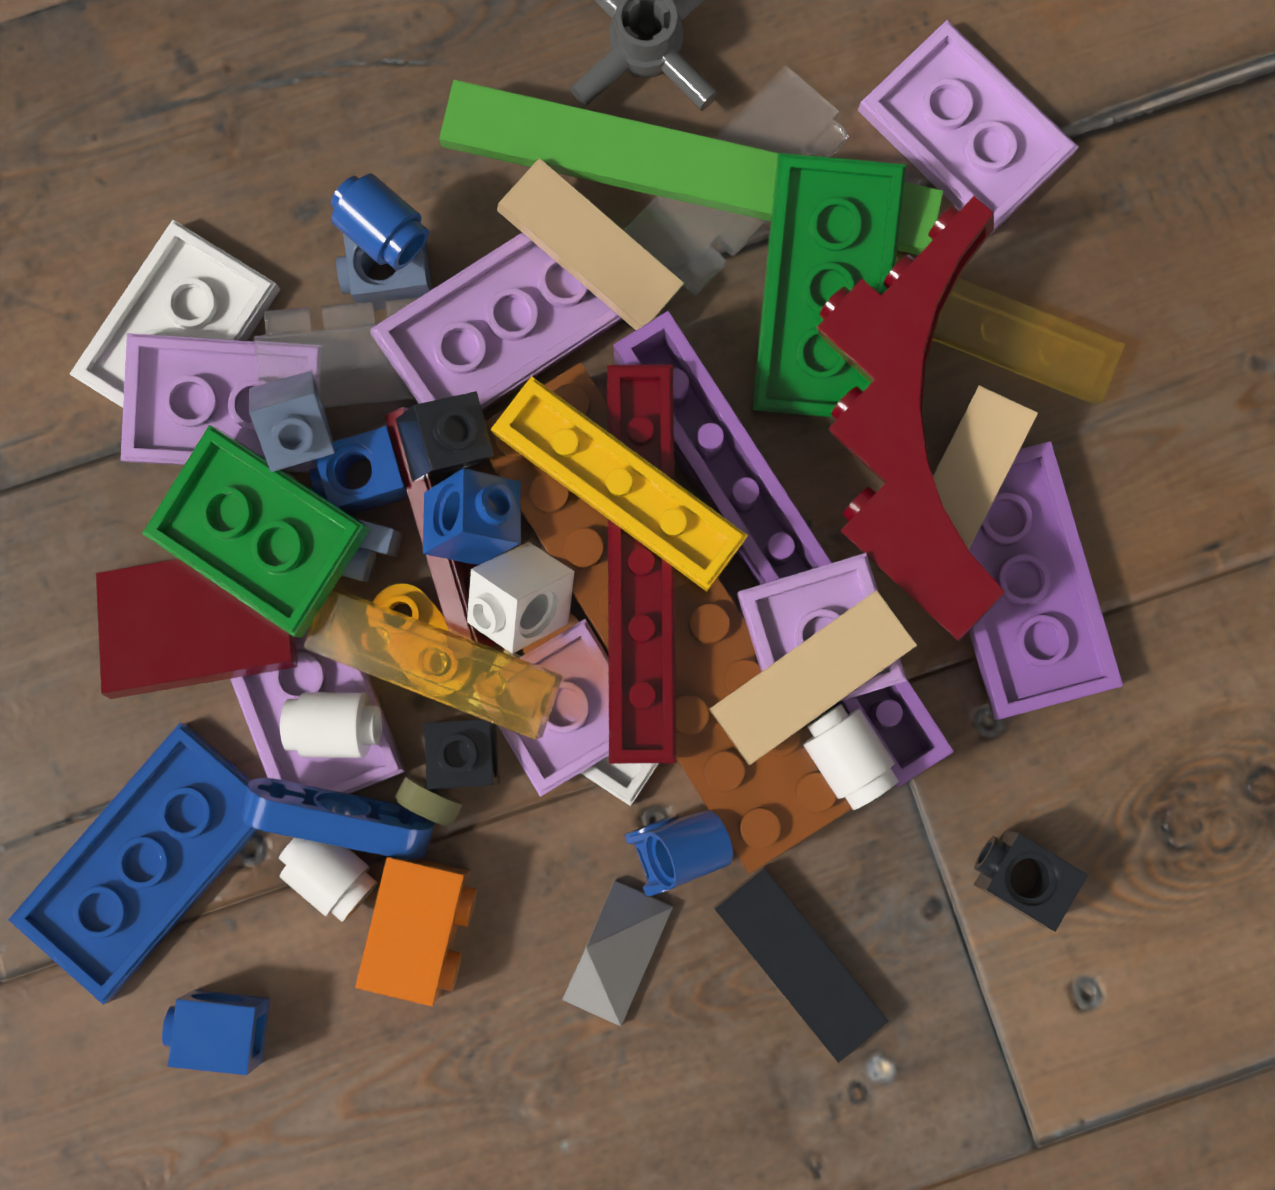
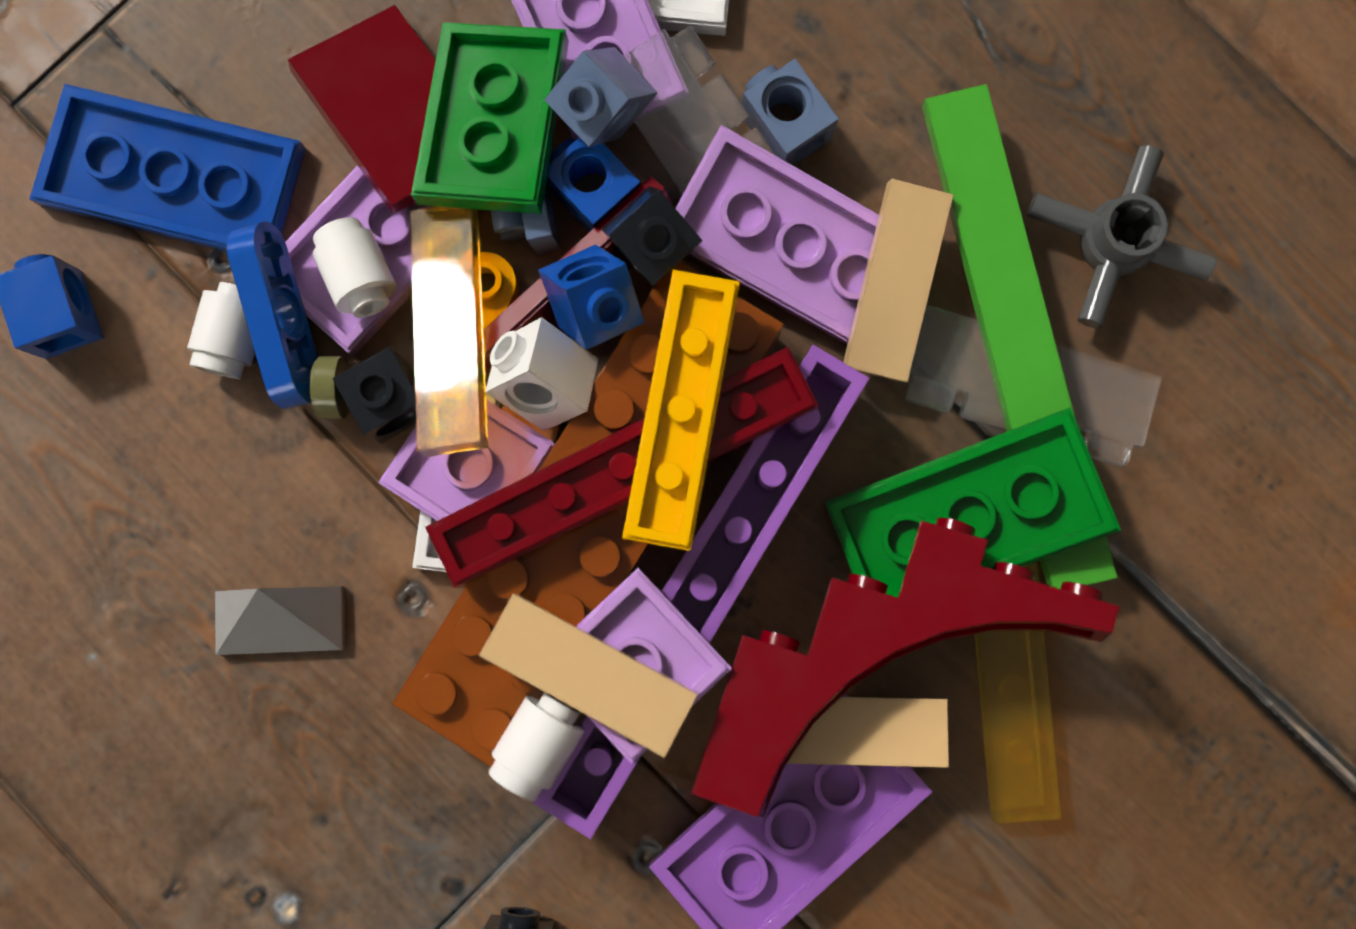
camera: 65 degrees right, 0 degrees up
(378, 221) = (818, 79): blue brick -> none
(415, 930) = (211, 432): orange brick -> none
(681, 849) = (388, 630): blue piece -> none
(800, 964) = (343, 791): black tile -> none
(967, 125) = (1192, 572): lavender tile -> none

